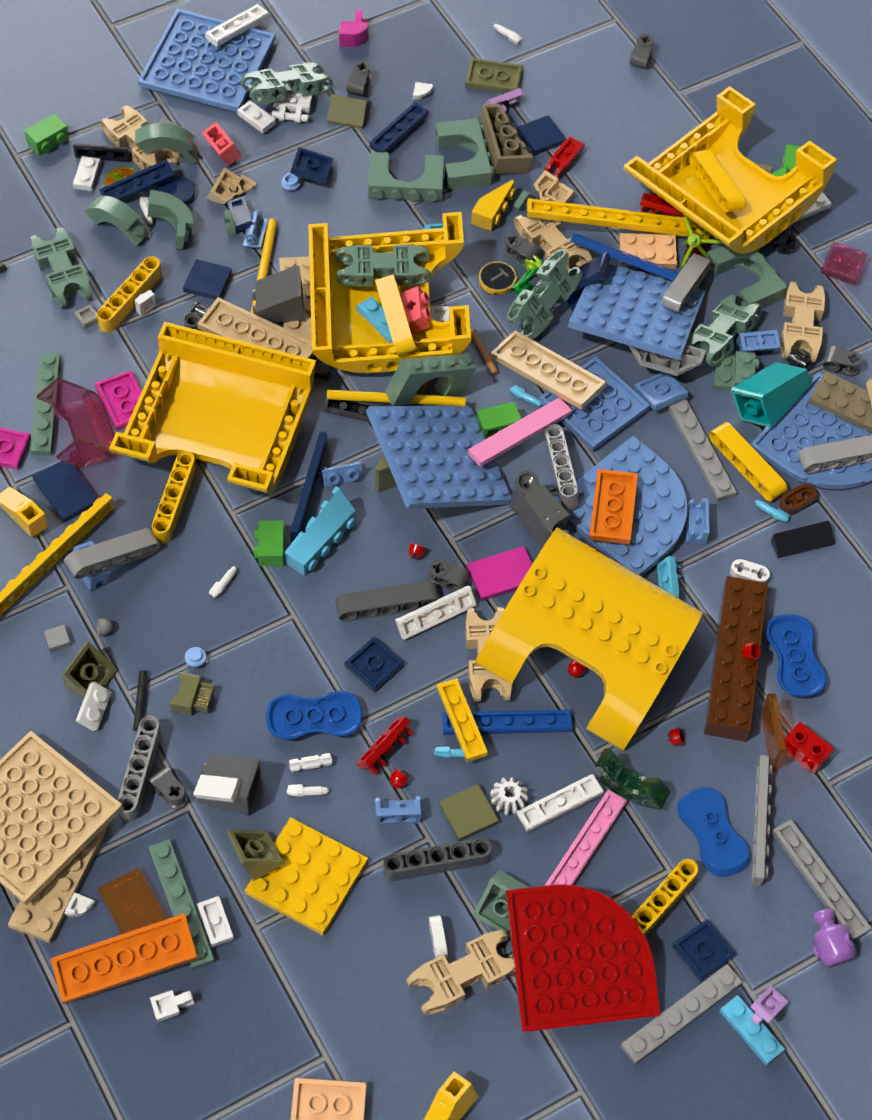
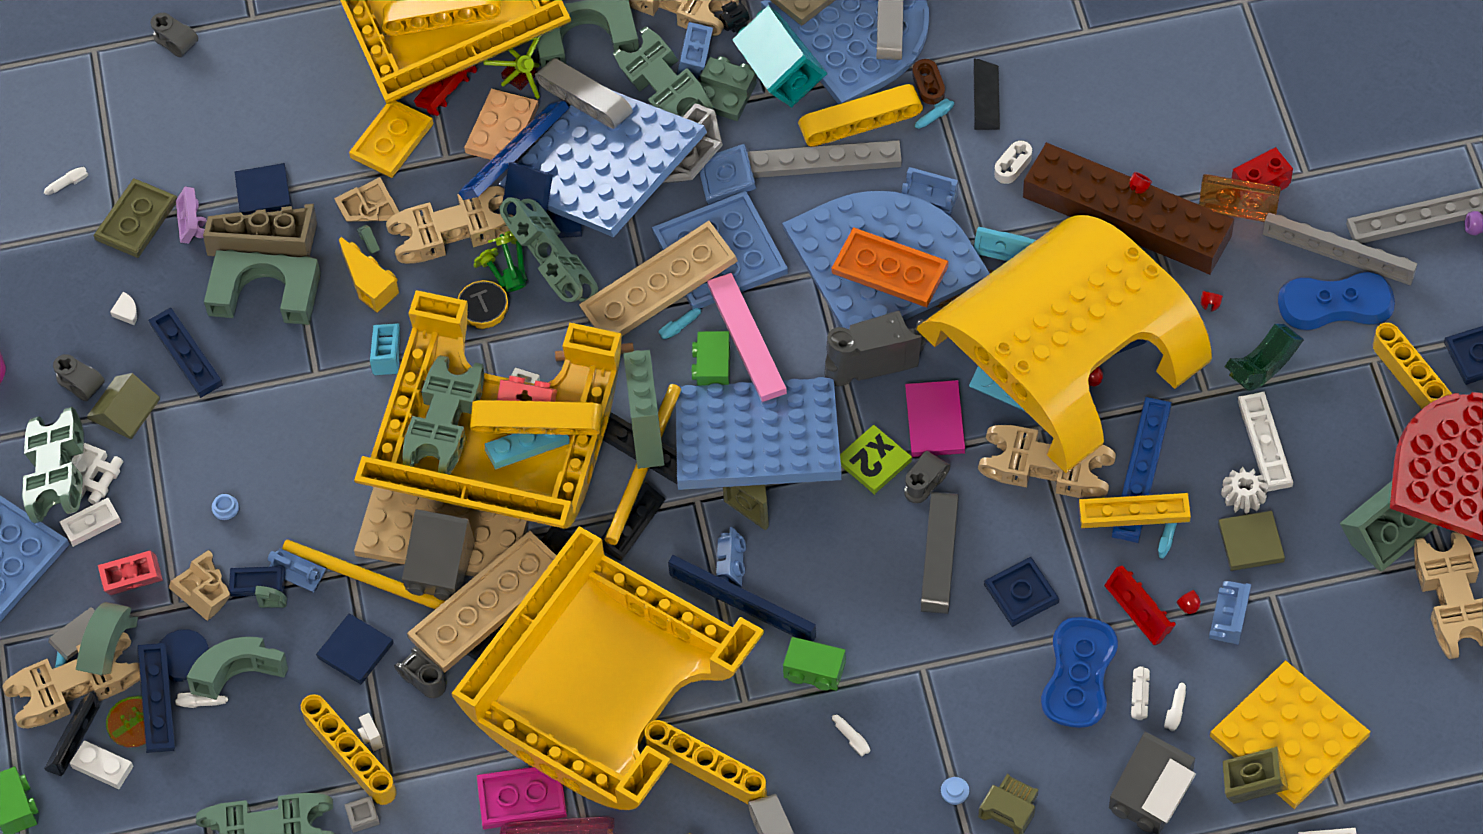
camera: 65 degrees left, 0 degrees up
(119, 214) = (204, 733): sand green arch -> none
(311, 165) = (212, 471): dark blue plate -> none
(321, 533) = (820, 601): medium azure wedge -> none
(385, 186) = (278, 395): sand green arch -> none
(419, 550) = (874, 503): red hinge -> none
(428, 866) = (1304, 597): dark grey beam -> none
(435, 612) = (972, 503): white plate -> none
(437, 936) = (1405, 611): white beam -> none
(454, 542) = (874, 459): none -> lime tile
(520, 250) = (453, 263): dark grey piece -> none
(561, 467) = (801, 300): light grey beam -> none
(564, 156) = (313, 173): red hinge -> none
(588, 840) = (1326, 435): bright pink tile -> none
(610, 190) = (391, 138): none -> yellow plate
(611, 218) = (445, 147): yellow plate -> none
(798, 668) = (1162, 151): blue plate -> none

